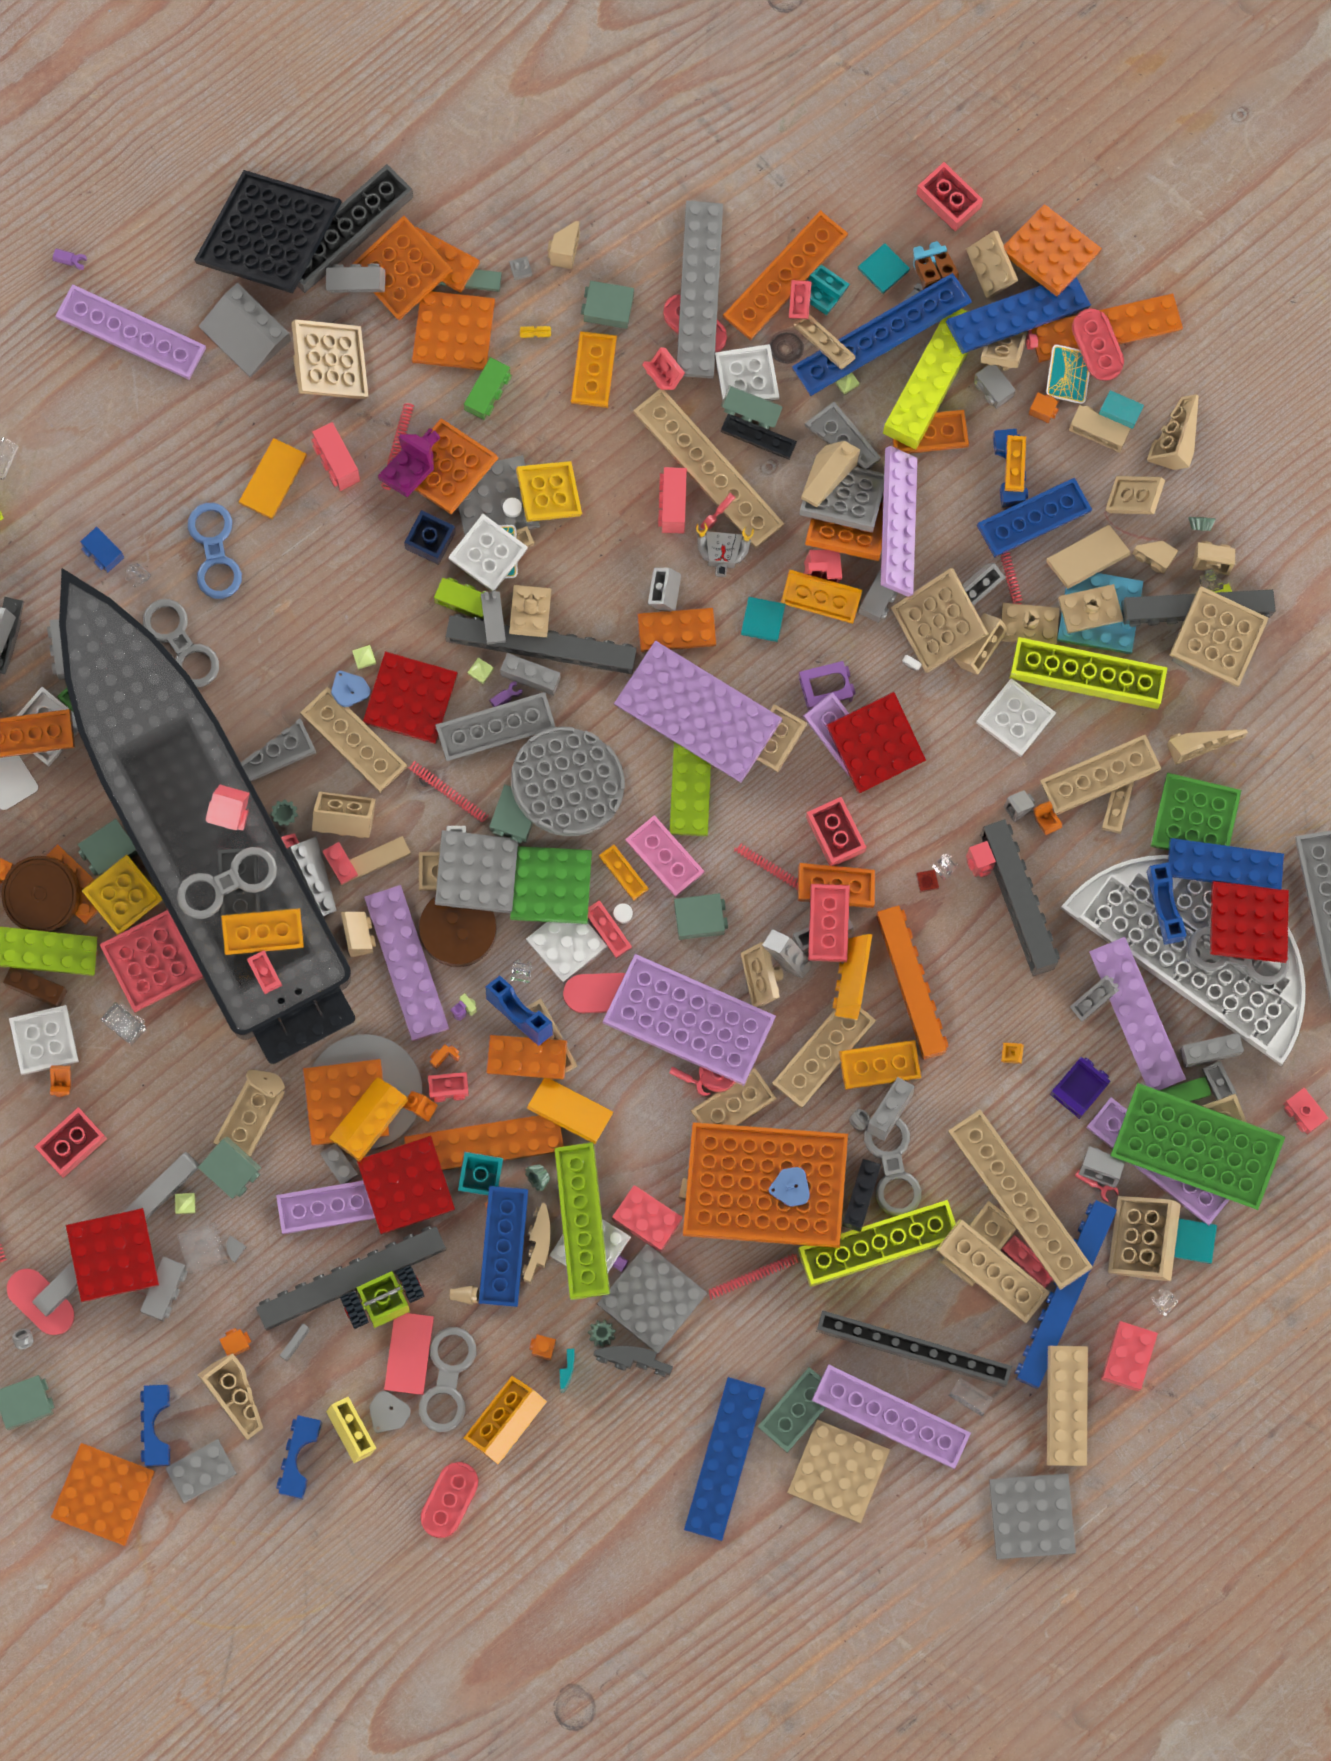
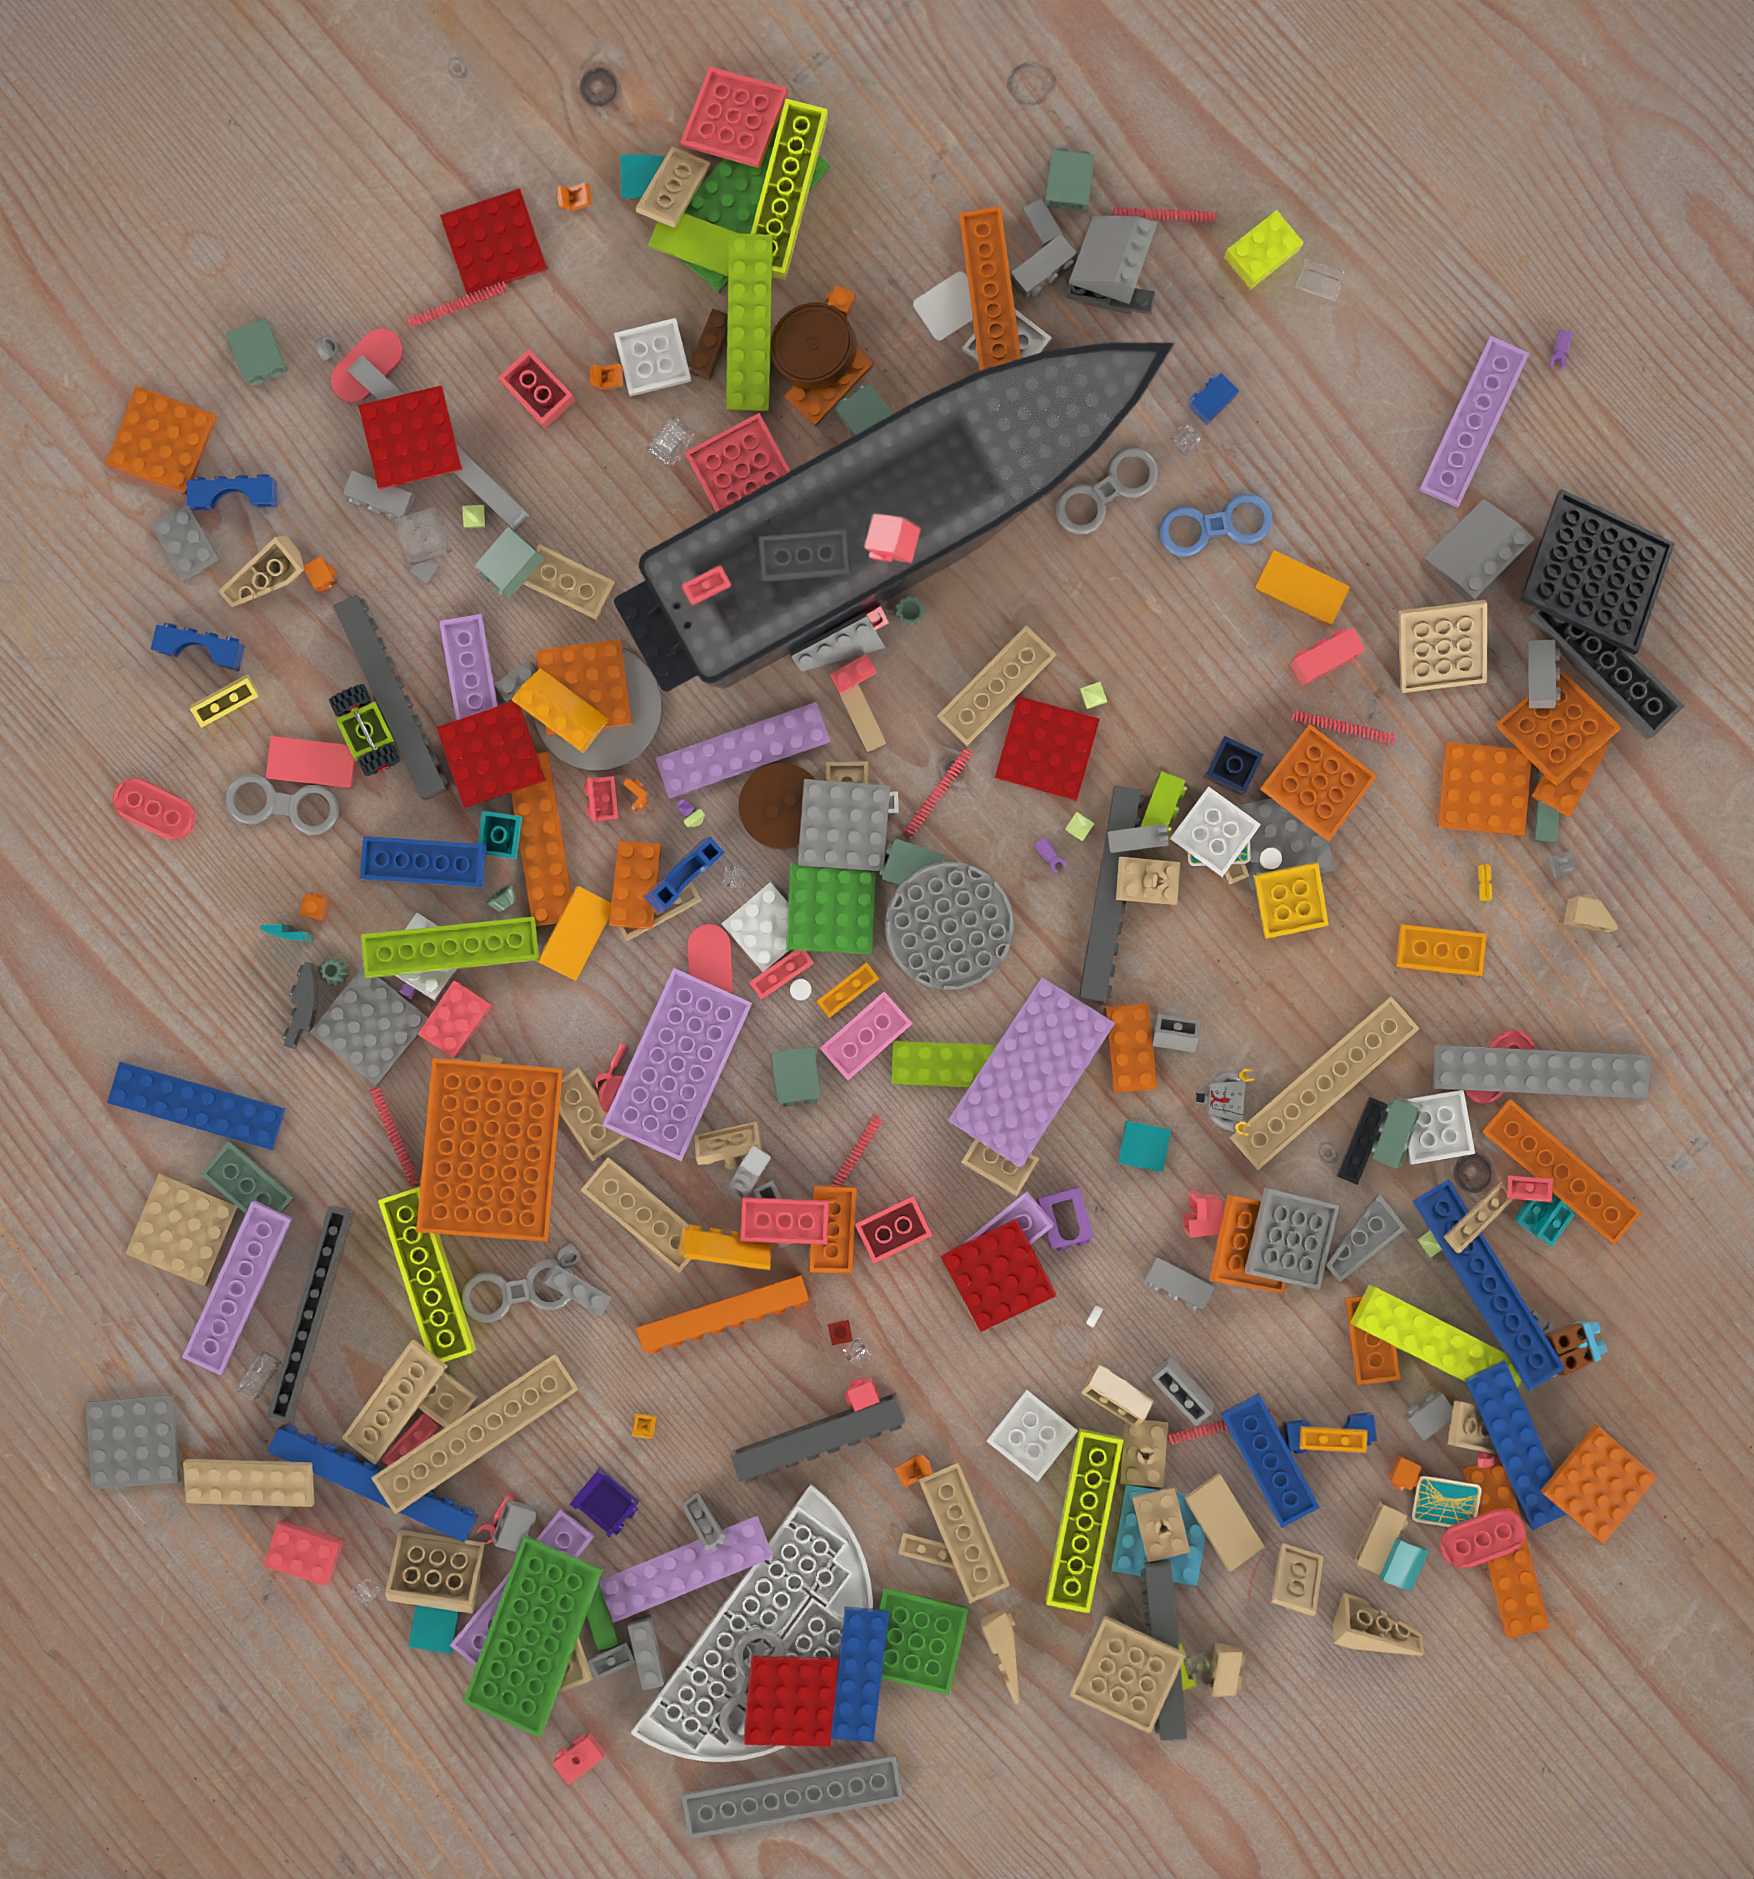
camera: 100 degrees right, 10 degrees up
(122, 894) = (811, 429): yellow plate -> none
(226, 882) = (807, 540): light grey bar -> none
(262, 931) = (752, 582): light orange tile -> none
(265, 1082) = (597, 598): tan piece -> none
(282, 751) = (983, 609): light grey wing -> none
(295, 1342) = (321, 638): light grey tile -> none
(343, 814) = (909, 676): tan slope -> none
(349, 683) = (1061, 678): medium blue piece -> none
(357, 933) = (772, 694): tan slope -> none
(387, 1418) = (241, 738): light grey piece -> none
(411, 463) = (1319, 742): magenta plate -> none
(420, 1105) = (580, 768): orange bracket -> none
(465, 1294) = (373, 821): tan cone -> none
(487, 389) = (1413, 828): bright green brick -> none
(495, 726) = (1013, 844): light grey plate -> none
(505, 1419) = (237, 866): light orange slope -> none
(530, 674) = (1074, 882): light grey brick -> none
(540, 1236) = (436, 903): tan slope -> none
(608, 304) = (1519, 965): sand green brick -> none
(664, 370) = (1439, 1031): coral bracket -> none
(672, 500) = (1282, 1041): coral brick -> none
(711, 519) = (1259, 1085): coral piece -> none
(785, 1188) = (483, 1171): medium blue piece -> none
(821, 596) = (1170, 1213): light orange tile -> none
(829, 470) = (1321, 1221): tan wedge -> none
(861, 1195) = (479, 1256): black plate -> none
(879, 1064) = (629, 1277): light orange tile -> none
(883, 268) = (1572, 1286): teal tile -> none
(899, 521) = (1260, 1303): lavender plate -> none
(939, 620) = (1142, 1349): tan plate -> none
(949, 196) = (1662, 1365): coral brick -> none
(992, 264) = (1578, 1414): tan plate -> none
(1019, 805) = (927, 1439): light grey slope -> none
(1156, 554) = (1227, 1604): tan slope -> none
(1161, 887) = (791, 1609): blue arch -> none
(1201, 523) = (1267, 1656): sand green piece -> none

